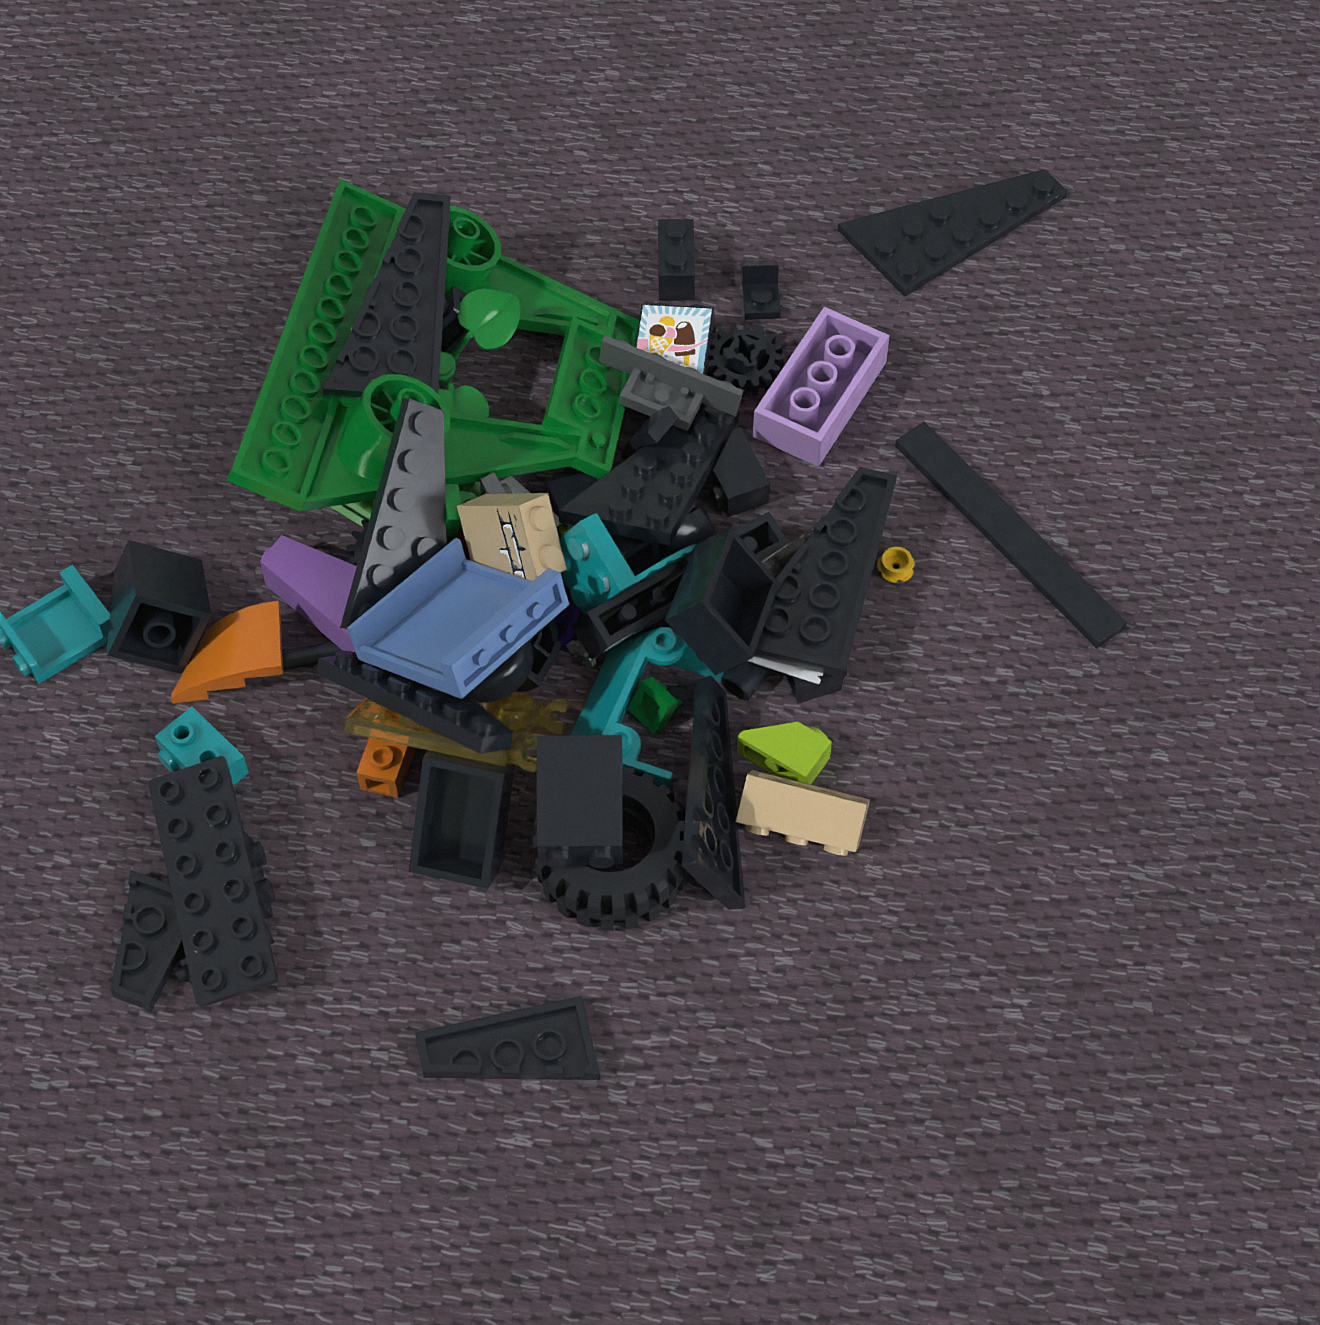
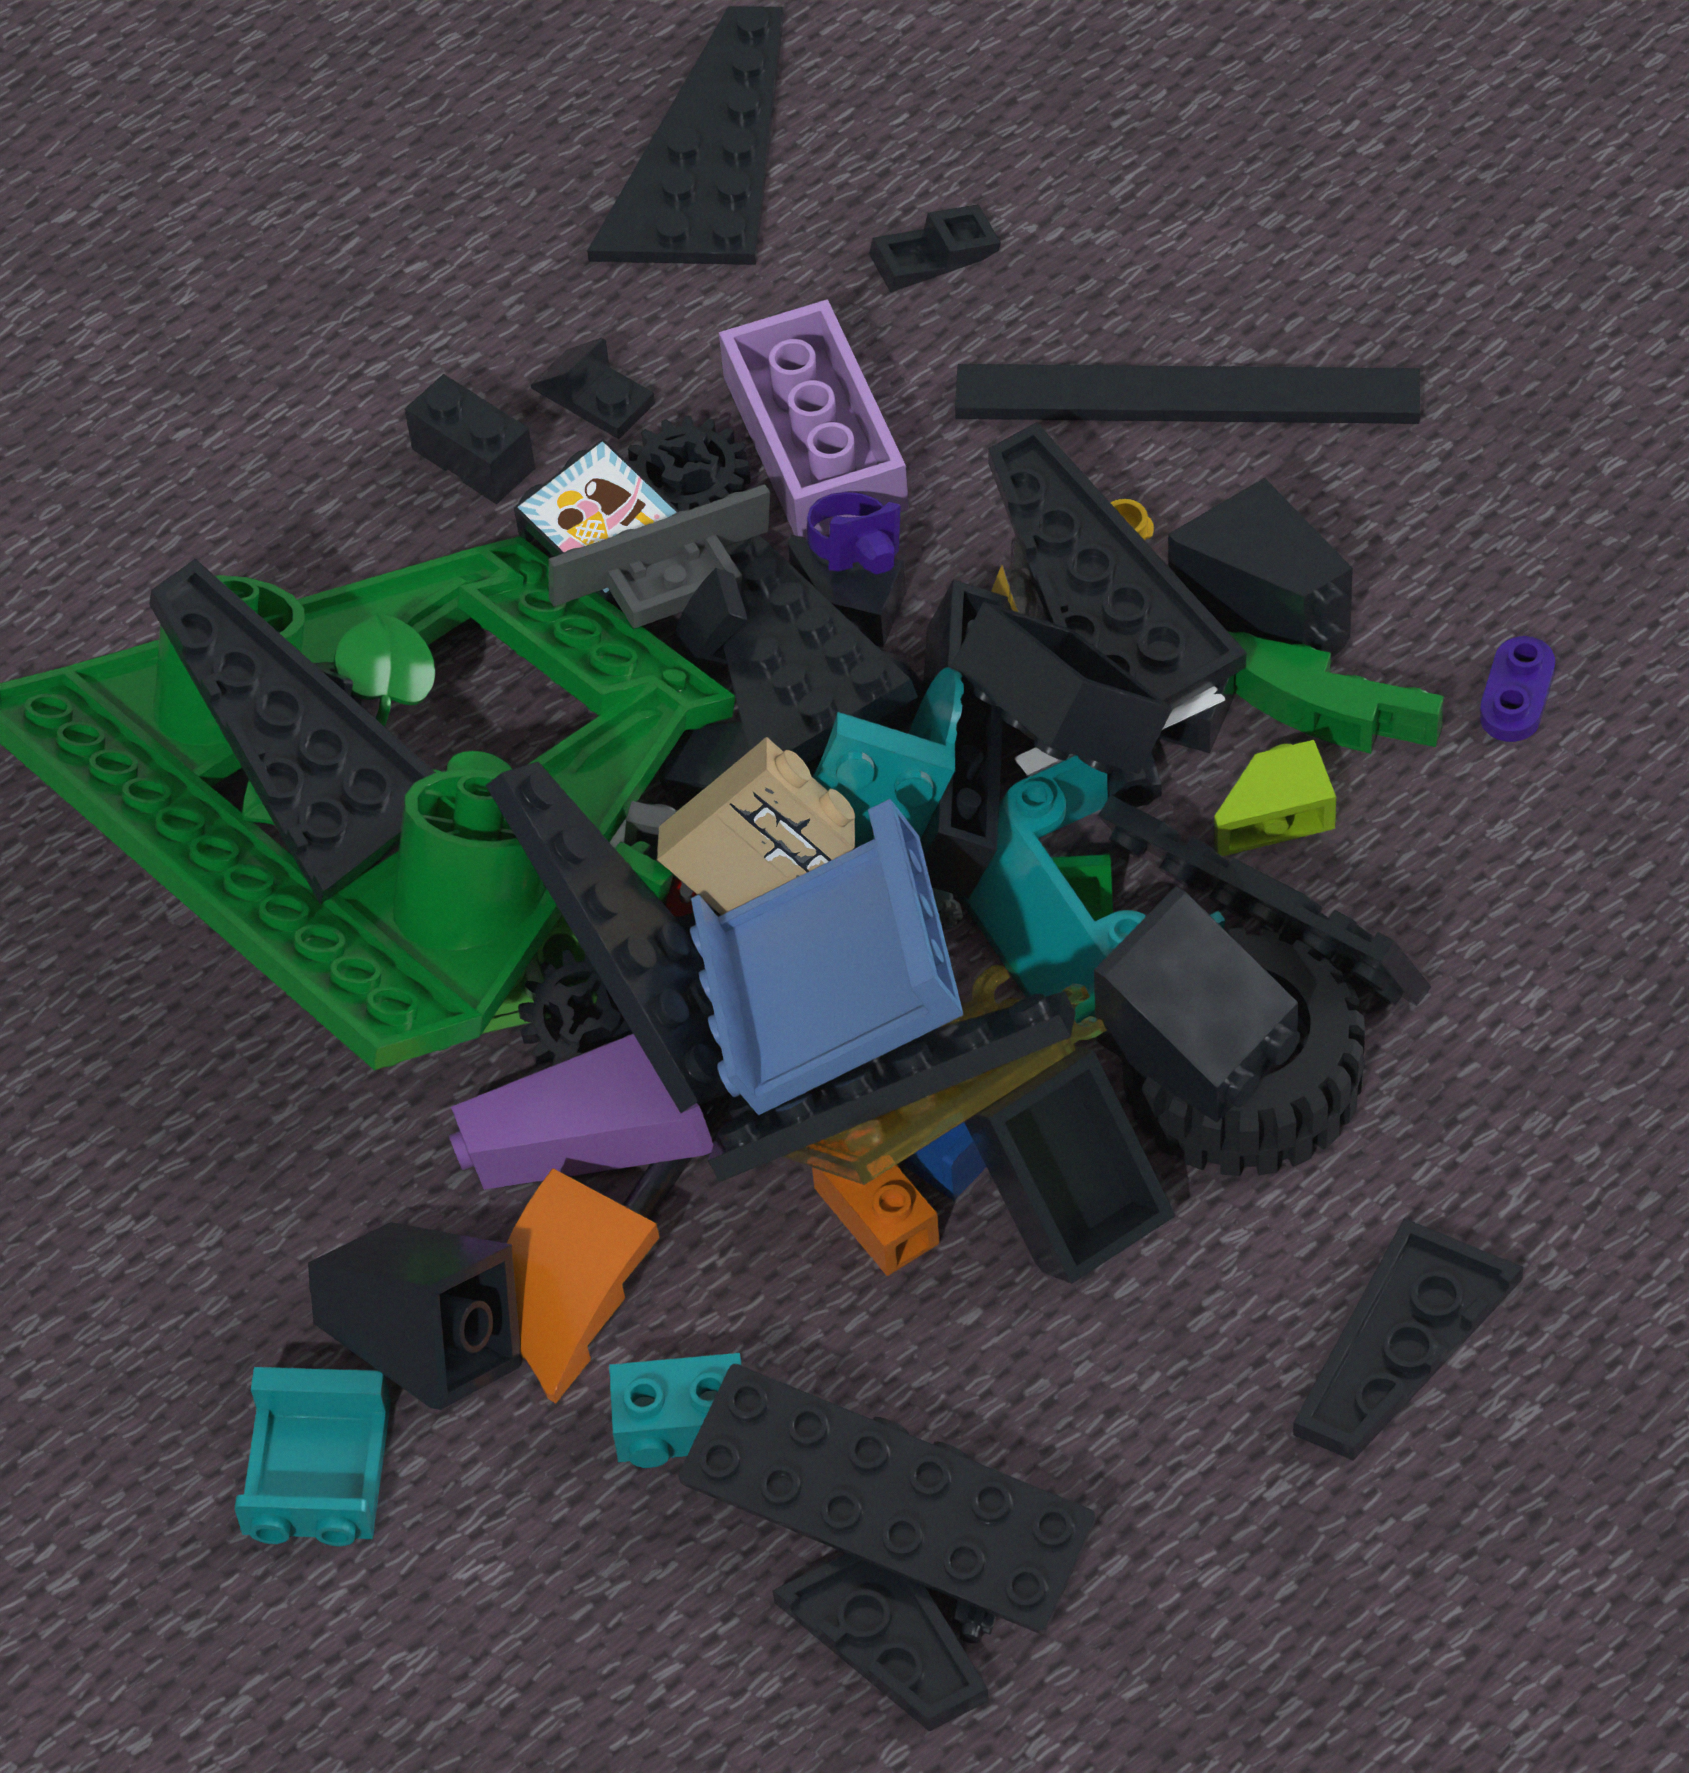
camera: 45 degrees left, 5 degrees down
(757, 458) = (864, 539): none -> dark purple piece
(802, 812) = (1375, 835): tan brick -> none
(869, 724) = (1346, 710): none -> green slope
(910, 642) = (1265, 571): none -> black slope
(970, 814) = (1517, 684): none -> dark purple plate
(997, 364) = (945, 244): none -> black slope

